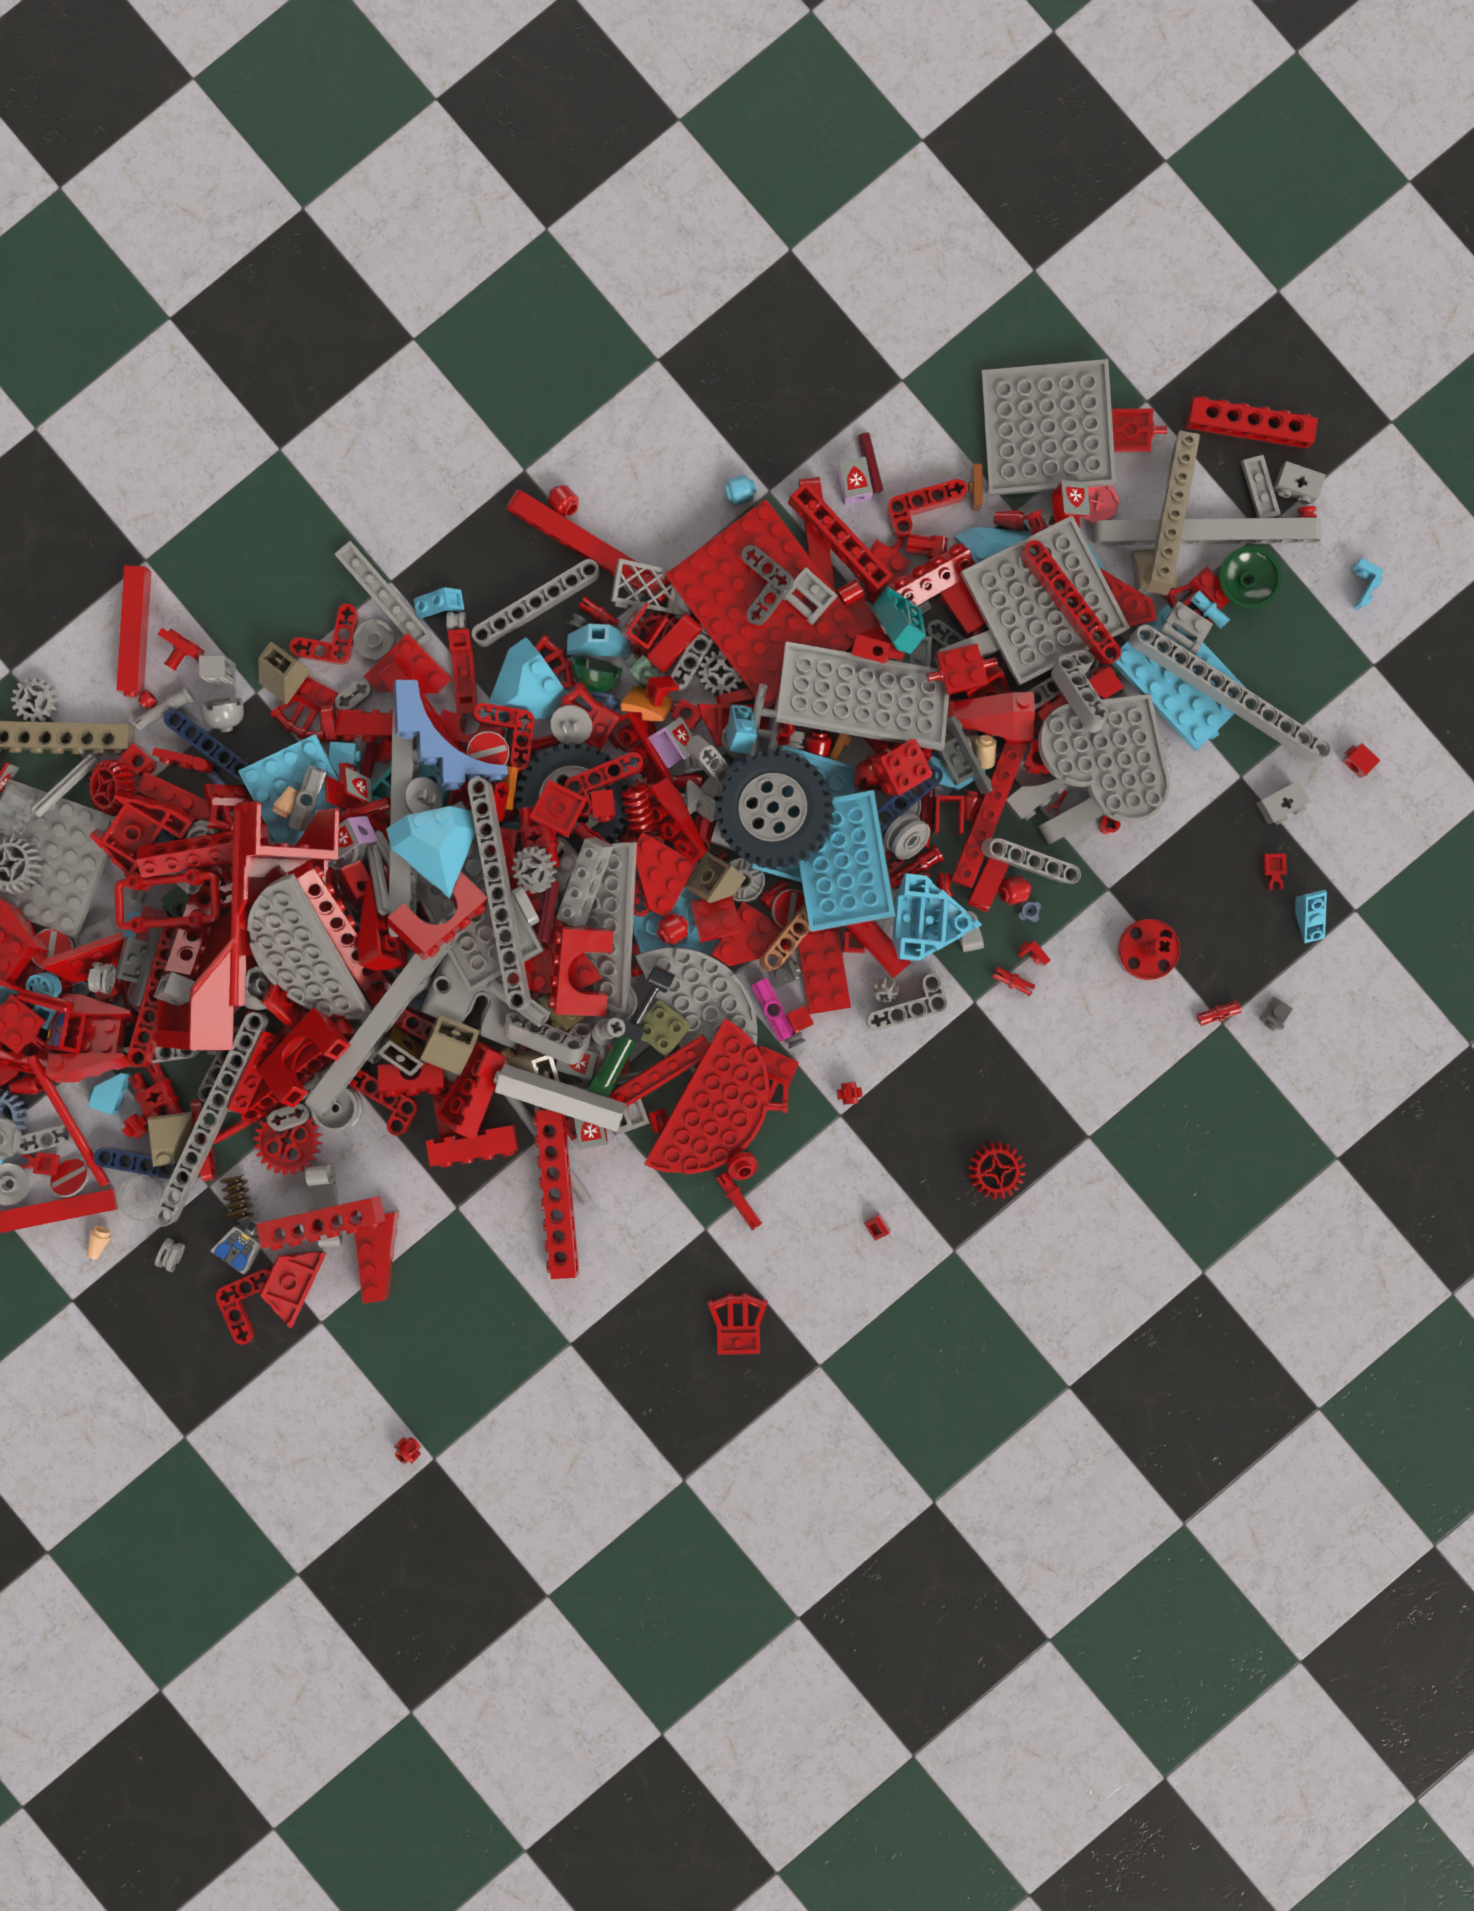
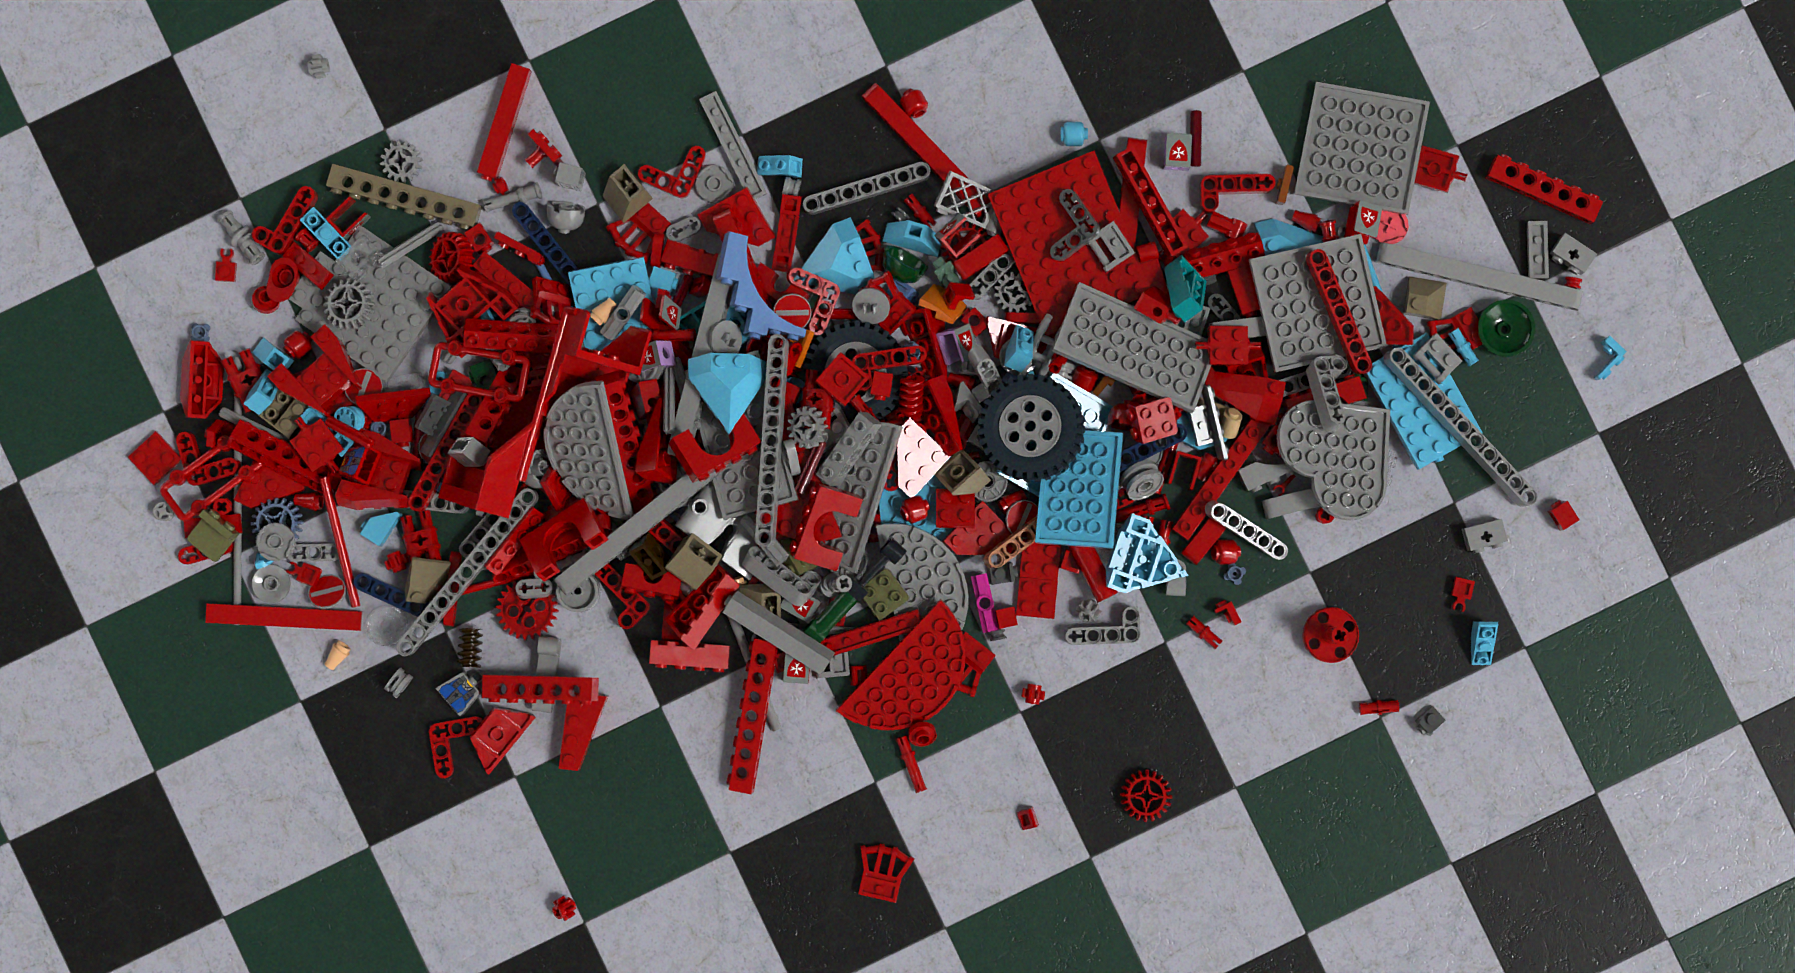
camera: 15 degrees right, 0 degrees up
(101, 978) = (402, 424): light grey wheel -> none
(1173, 513) = (1451, 253): dark tan brick -> none

